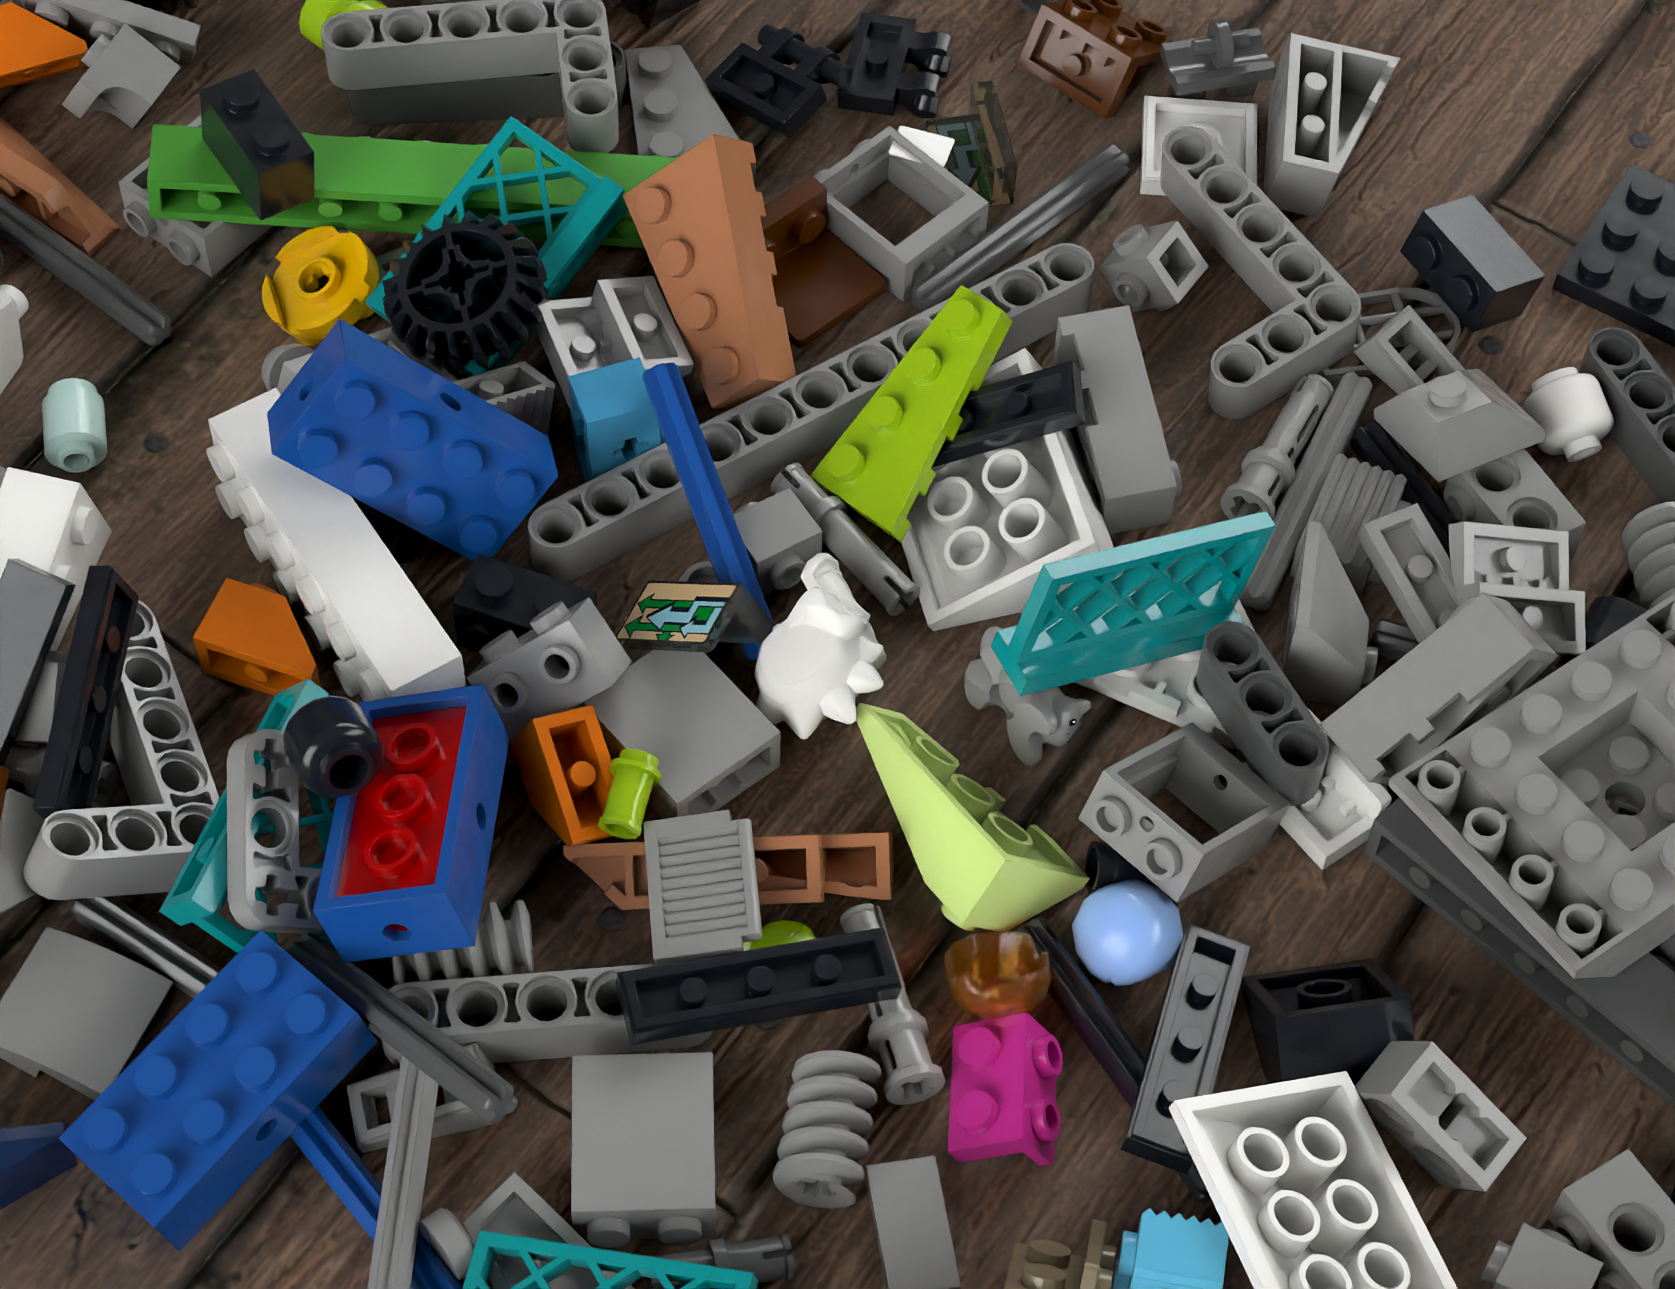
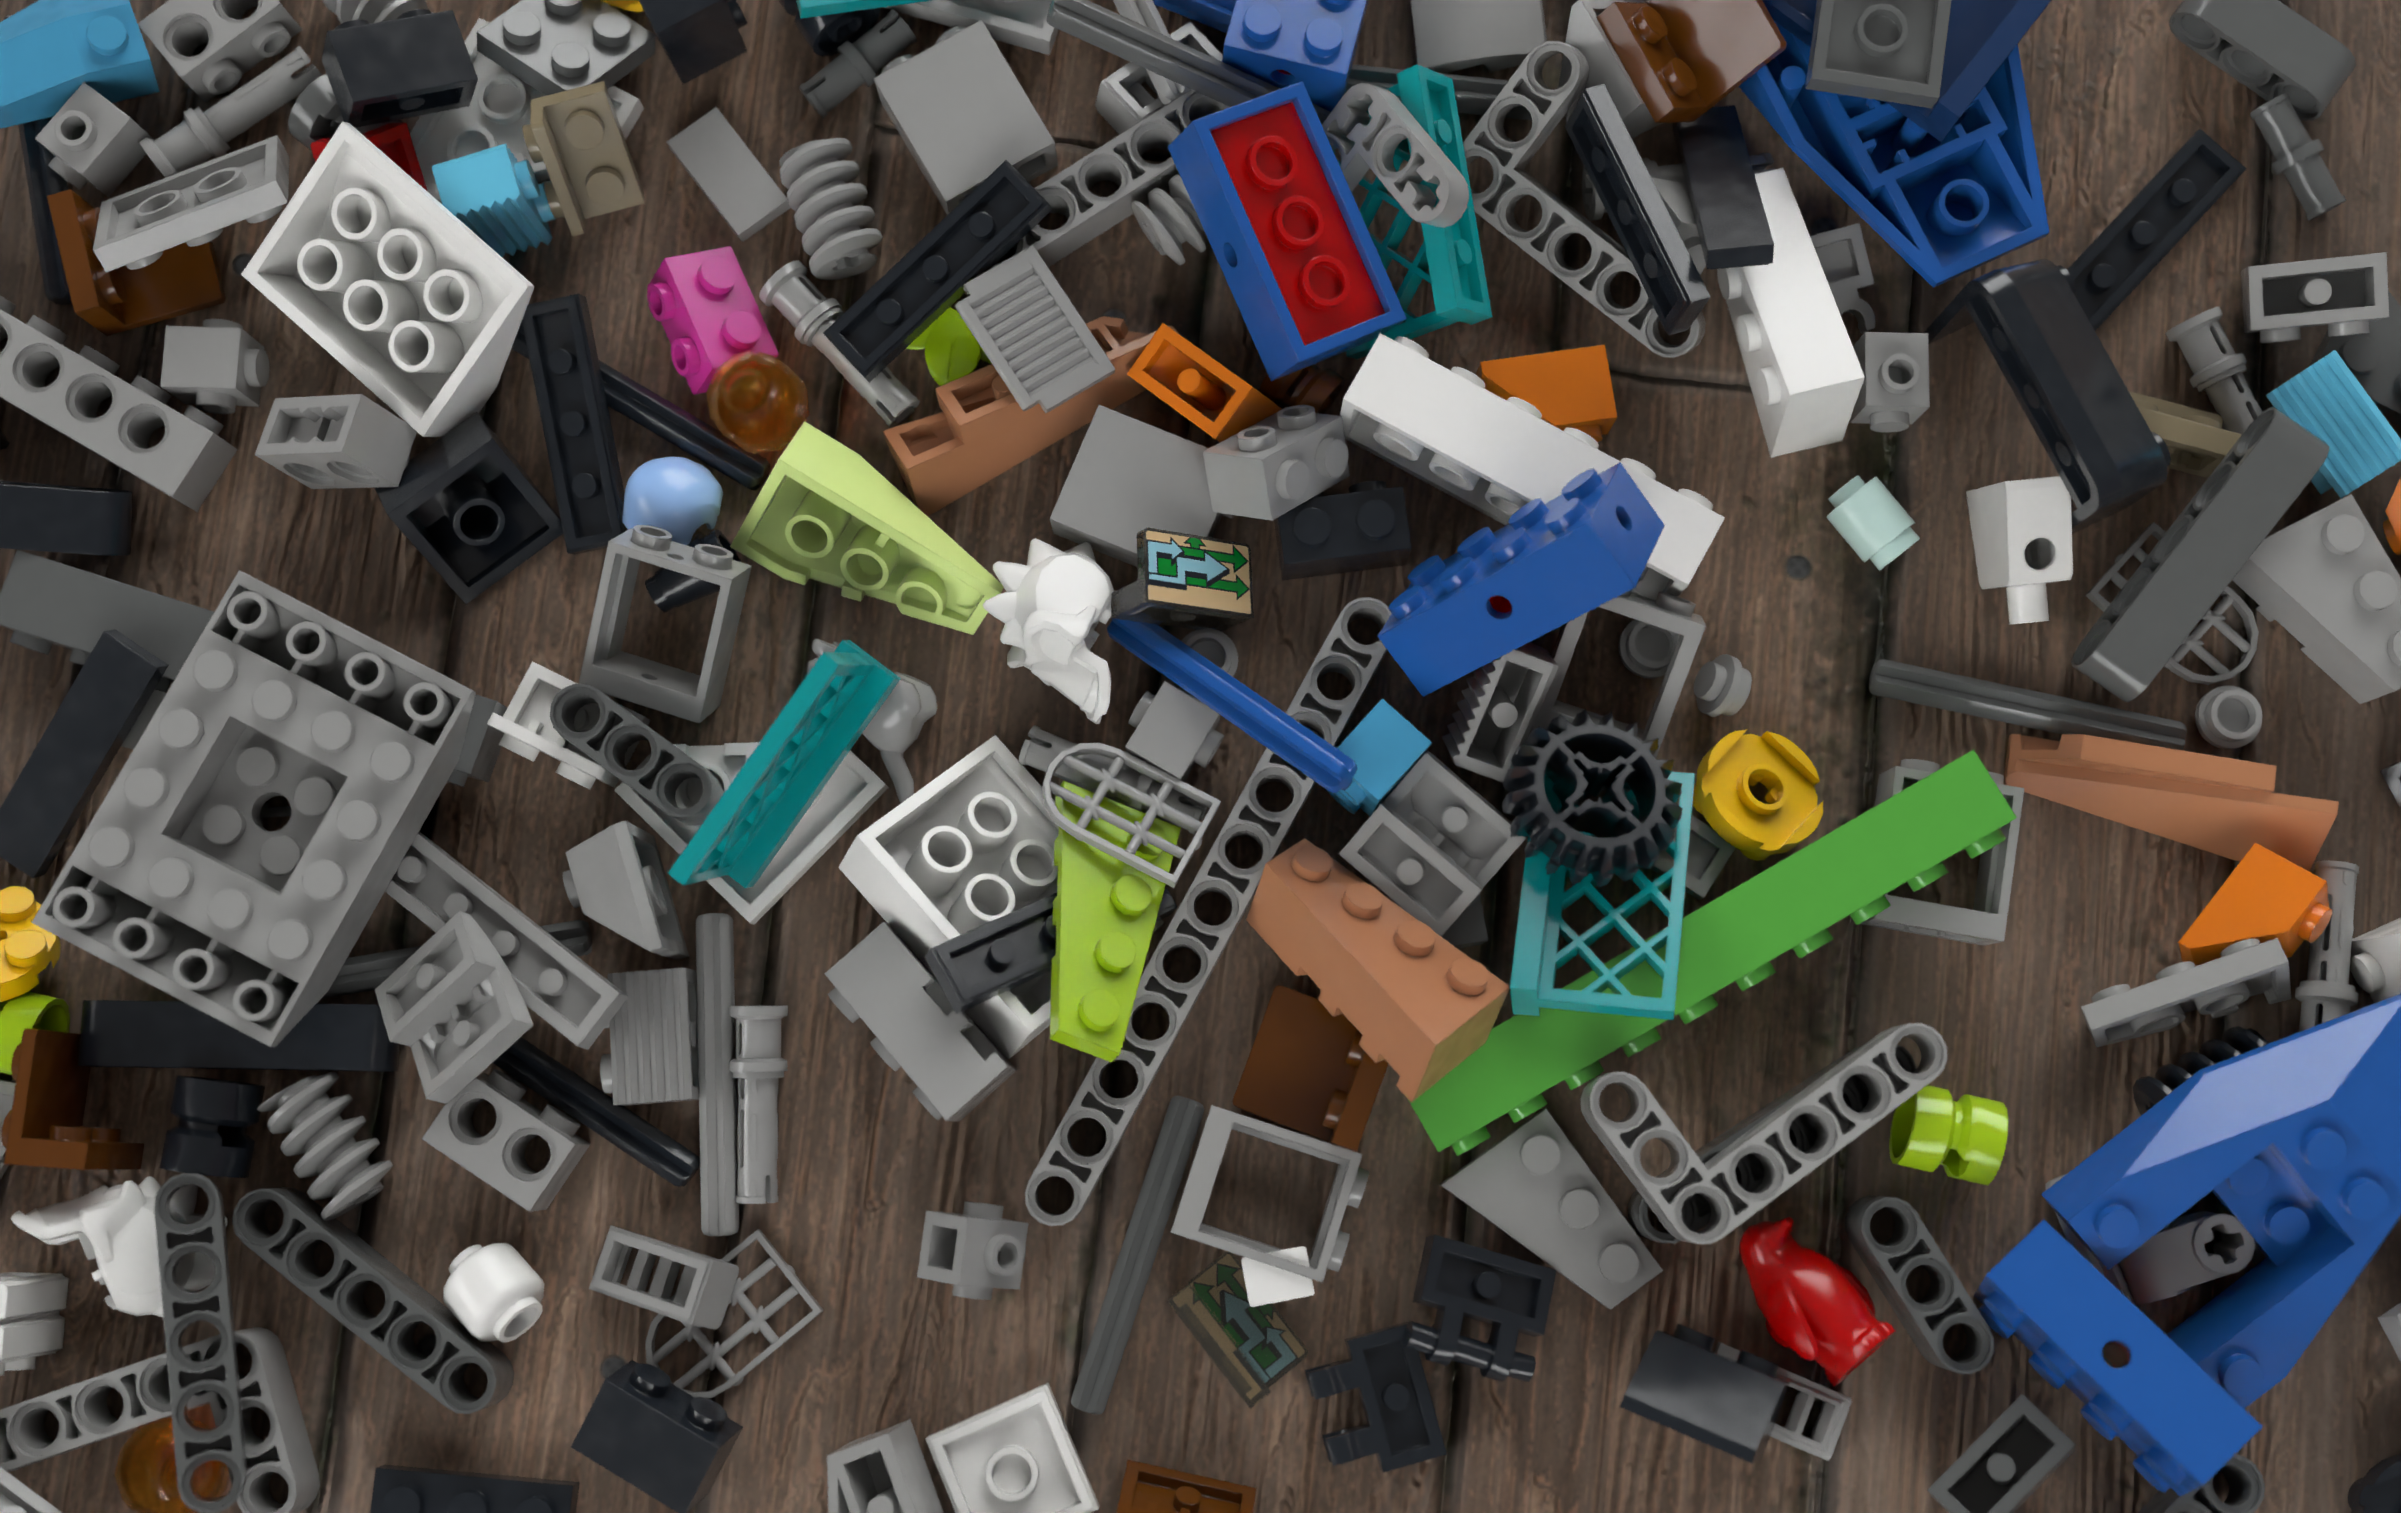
camera: 155 degrees right, 25 degrees up
(121, 77) = (2125, 930): light grey brick -> none
(257, 144) = (1891, 827): black brick -> none
(333, 747) = (1378, 221): black head -> none
(633, 779) = (1142, 395): lime pin -> none
(849, 459) = (1139, 830): none -> light grey window
(1265, 268) = (857, 1311): light grey beam -> none
(1439, 688) = (479, 837): light grey wedge -> none
(1458, 423) = (587, 1201): light grey slope -> none

